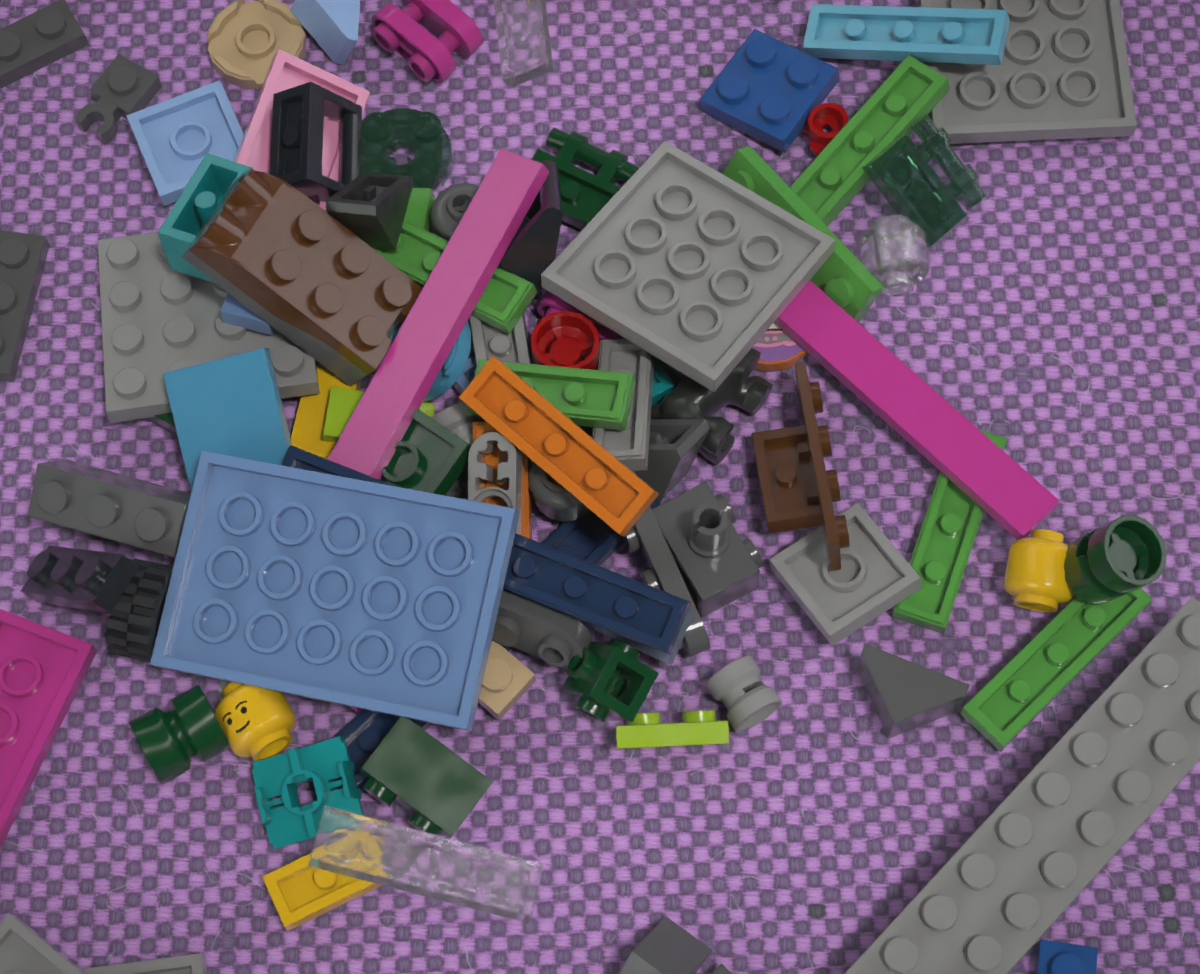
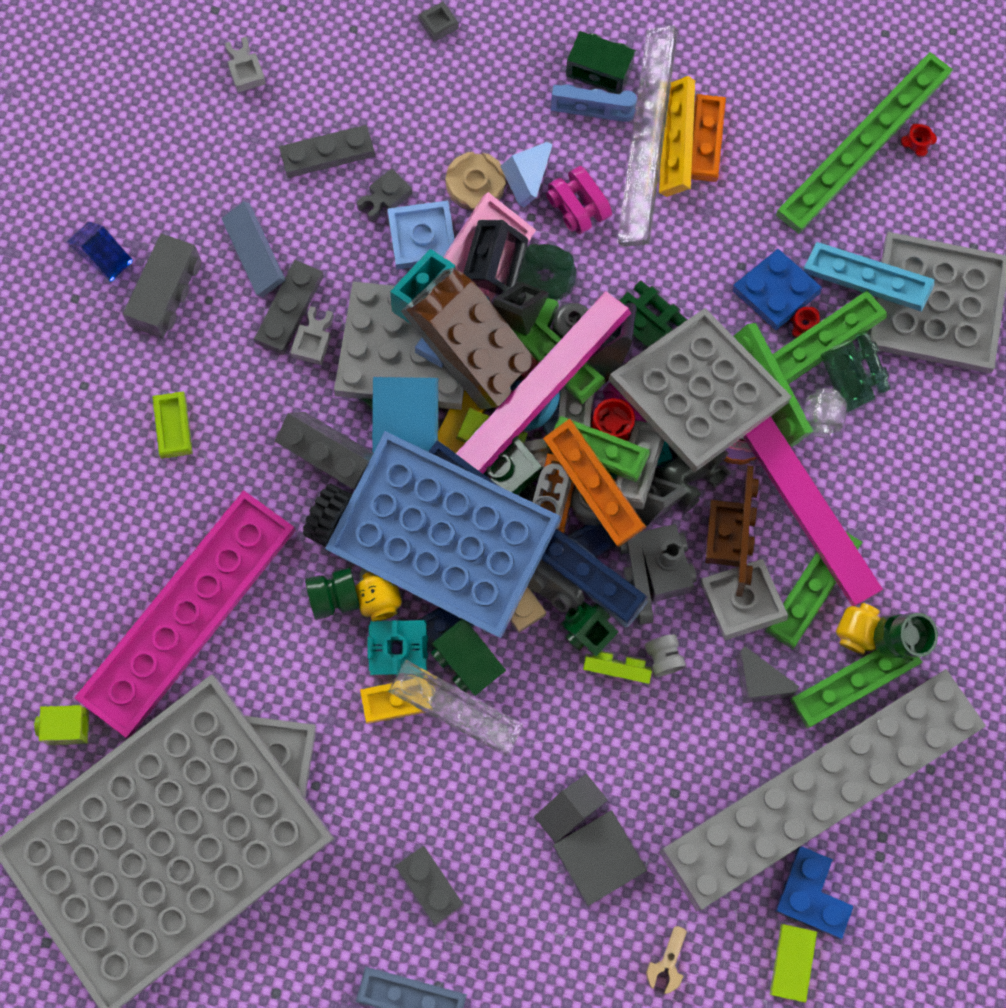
camera: 10 degrees right, 5 degrees up
(55, 346) = (313, 340): none -> light grey plate
(79, 578) = (296, 487): black plate -> none

